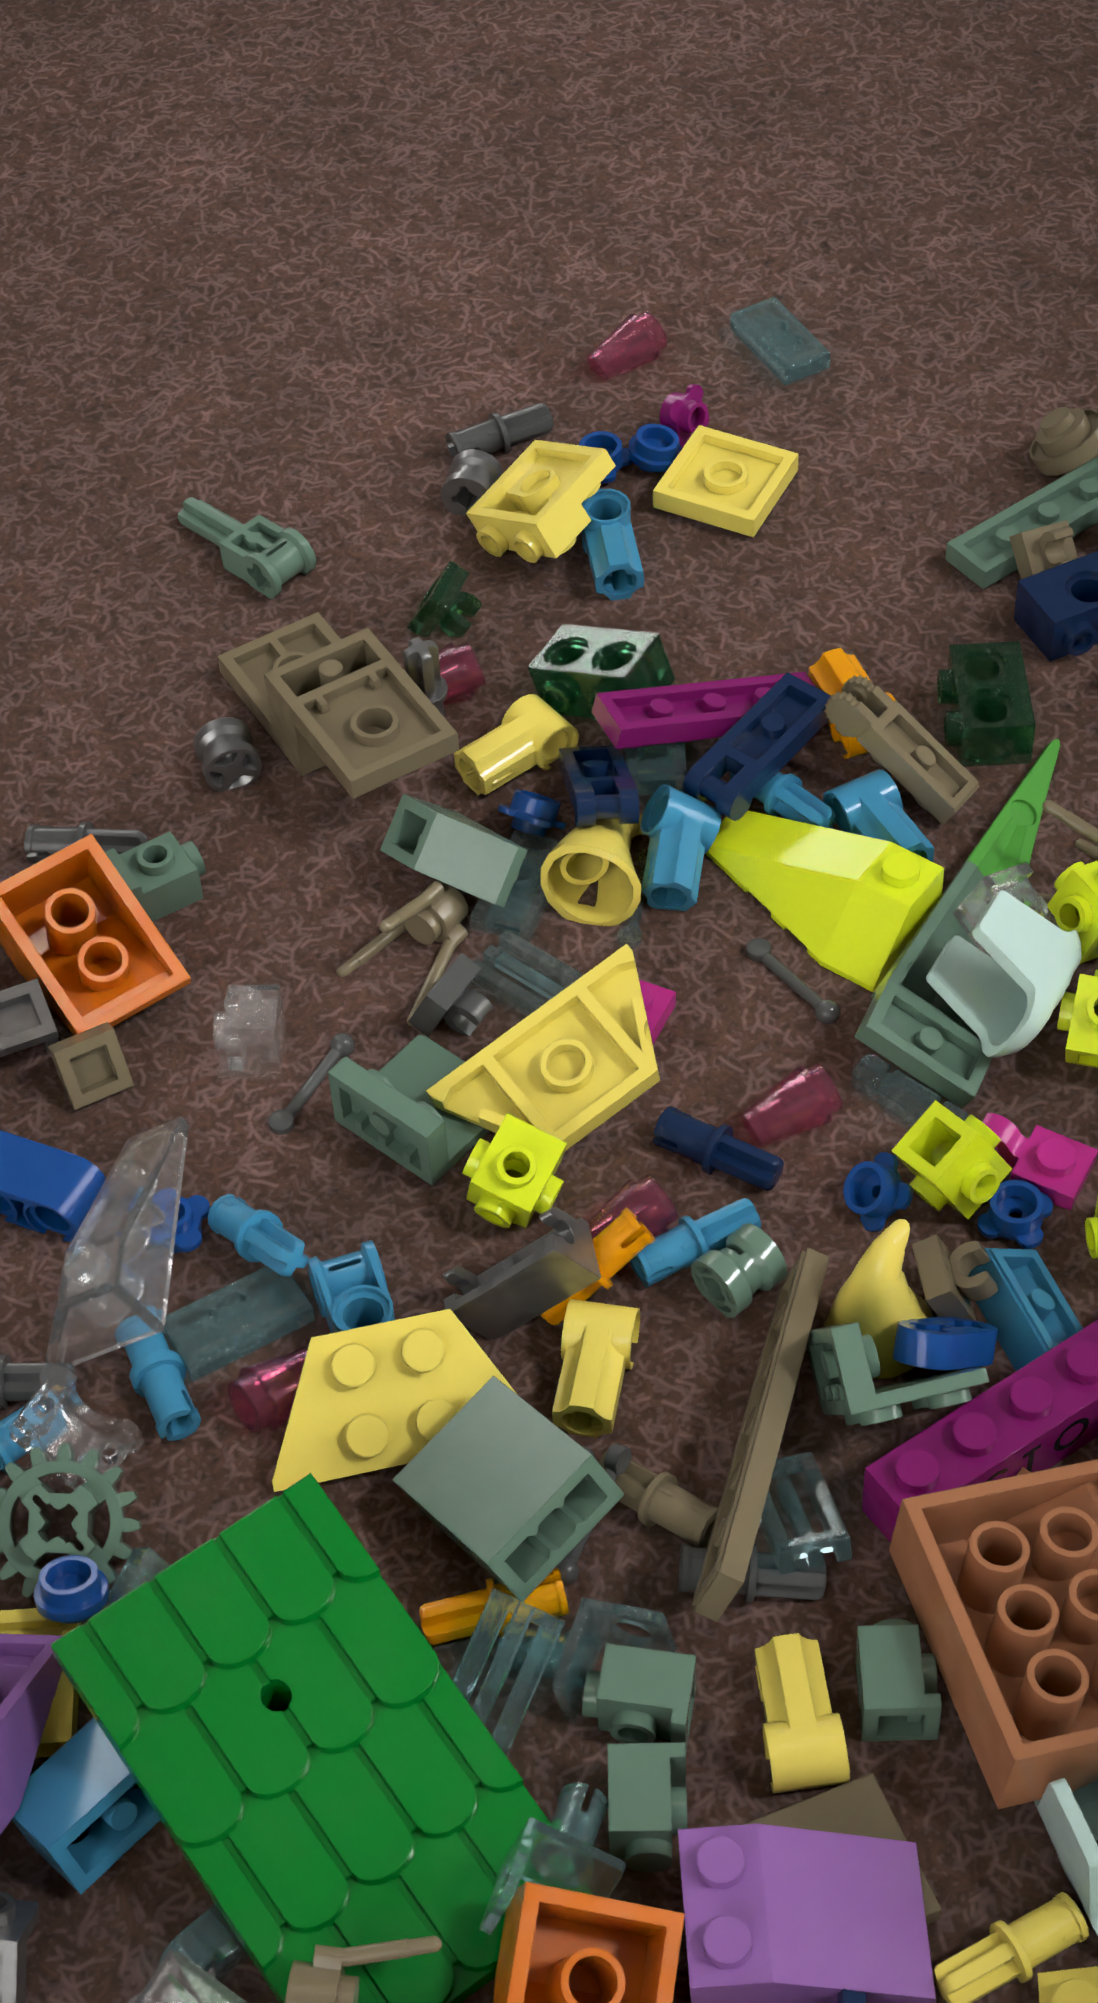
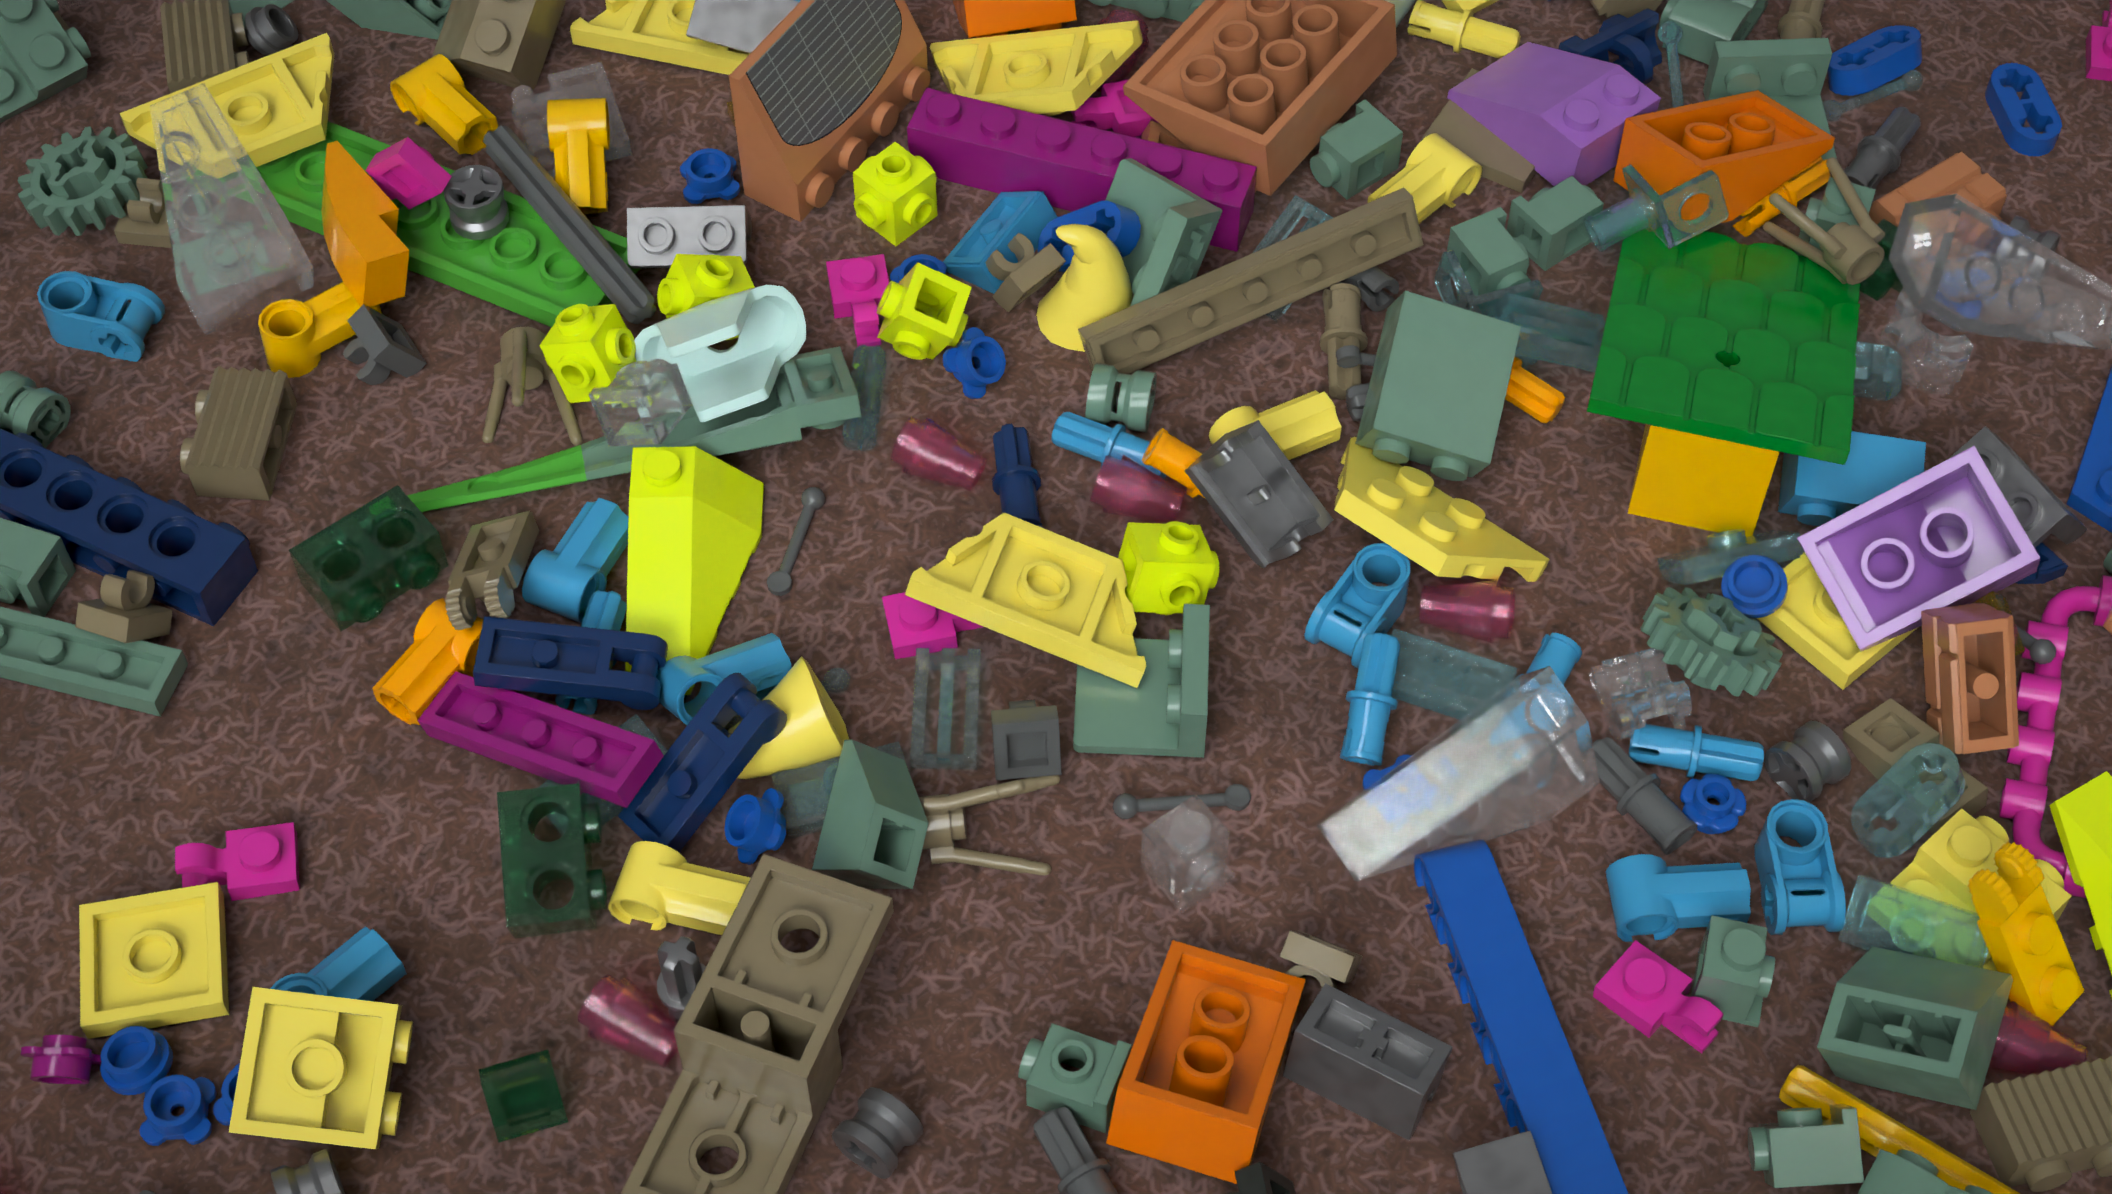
camera: 130 degrees left, 5 degrees up
(770, 557) = (251, 865): none -> dark pink plate

